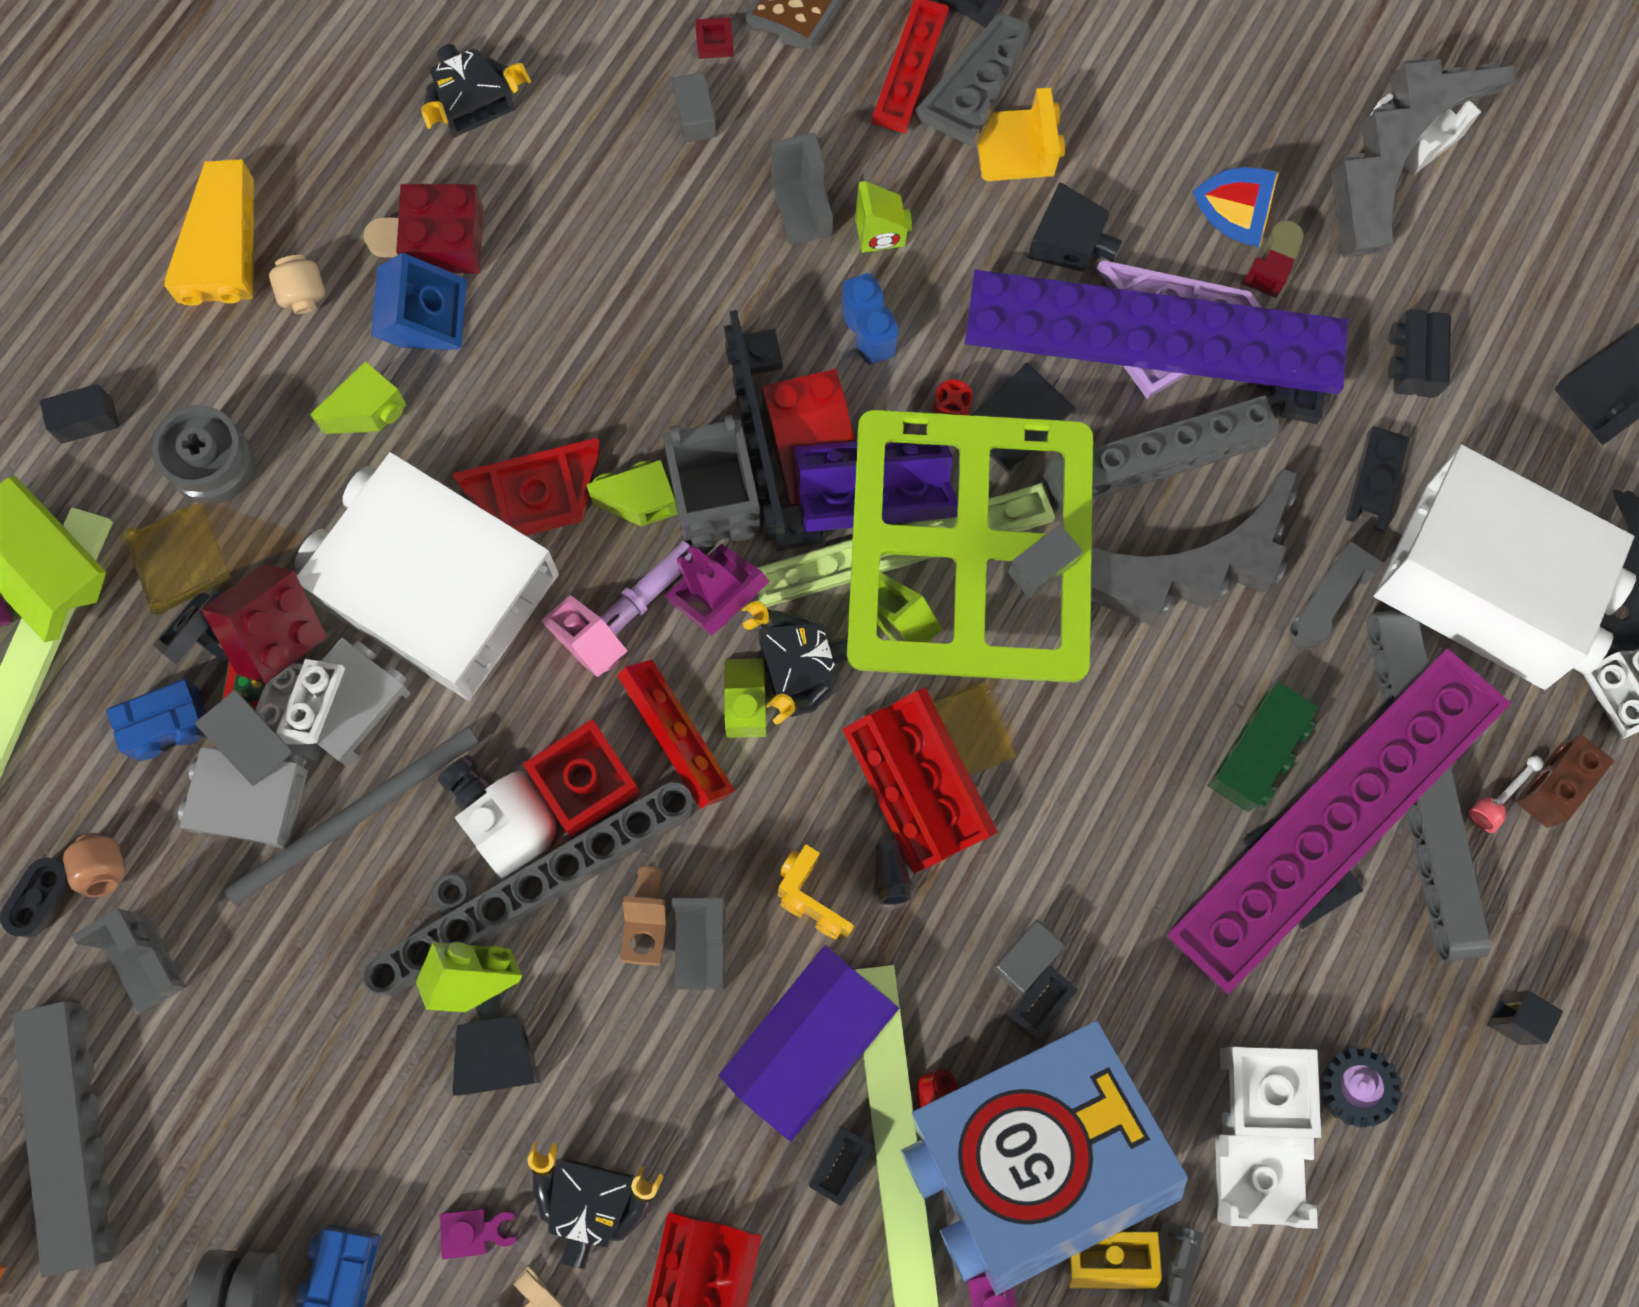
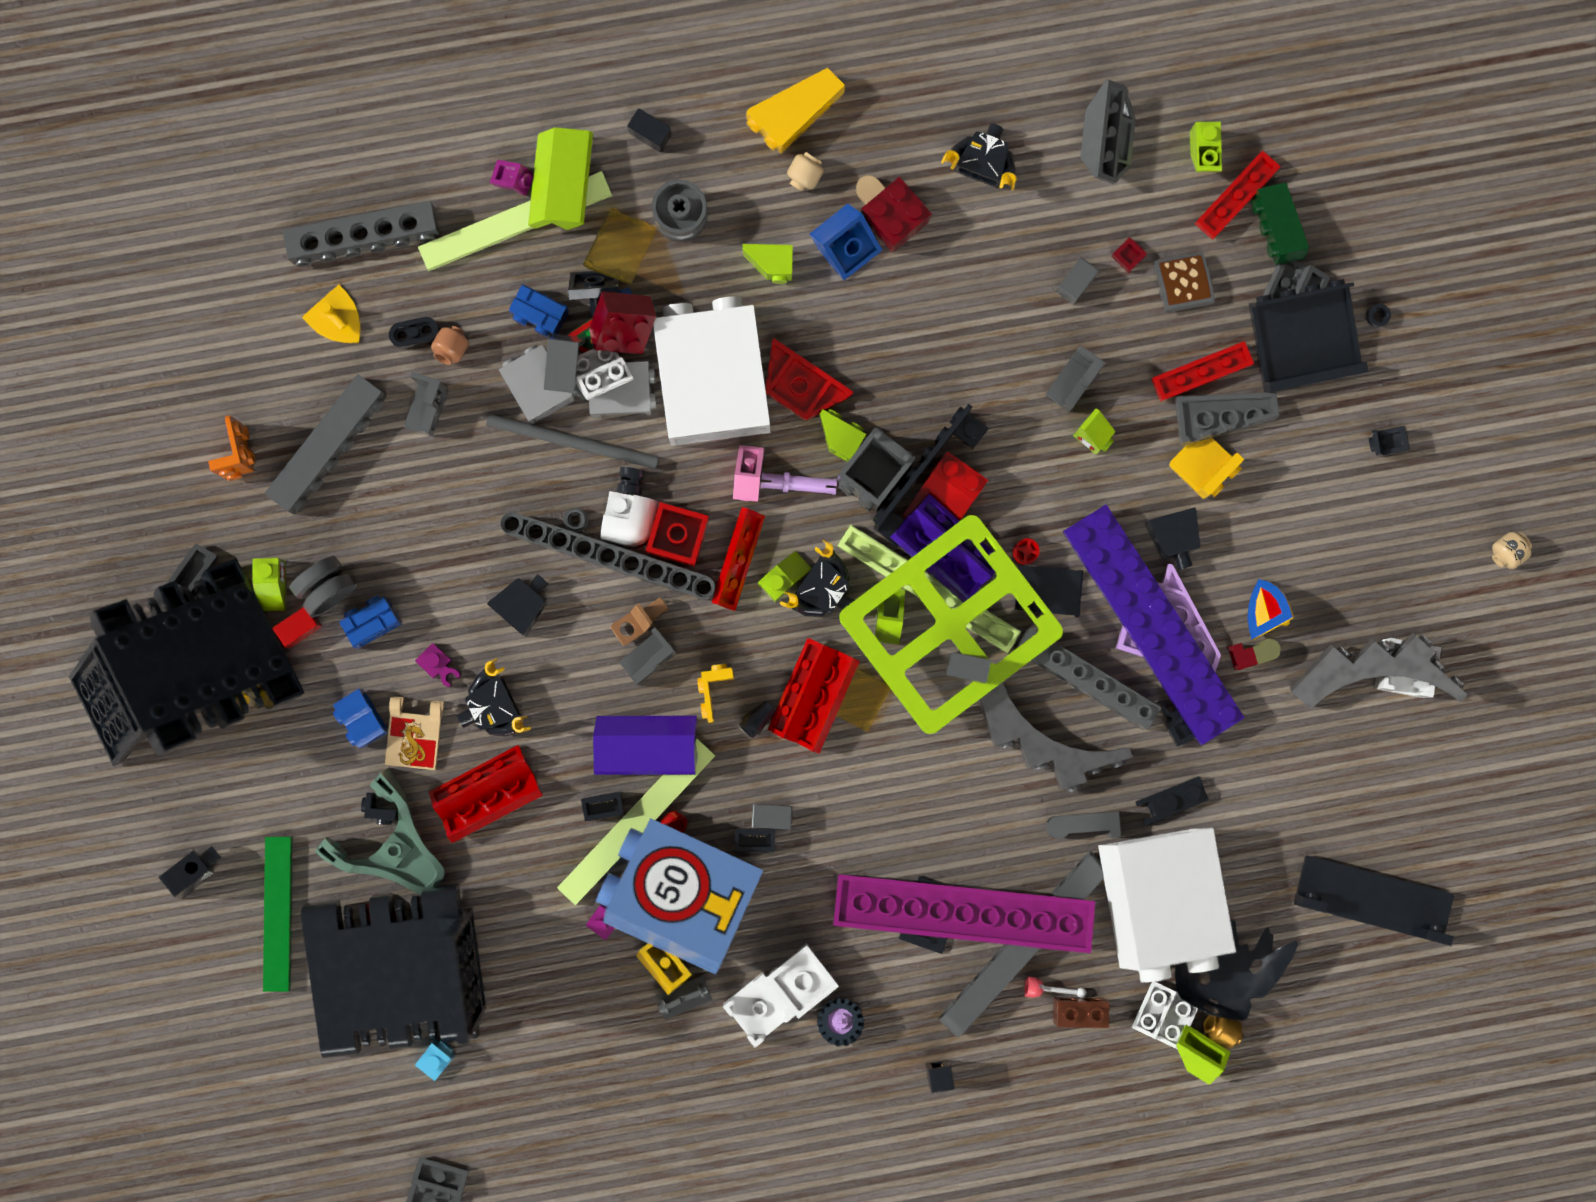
camera: 50 degrees right, 10 degrees up
(464, 975) = (543, 562): lime slope -> none
(715, 586) = (825, 516): magenta plate -> none
(869, 318) = (1032, 477): blue brick -> none
(1264, 747) = (973, 850): dark green brick -> none
(1421, 353) = (1262, 770): black brick -> none

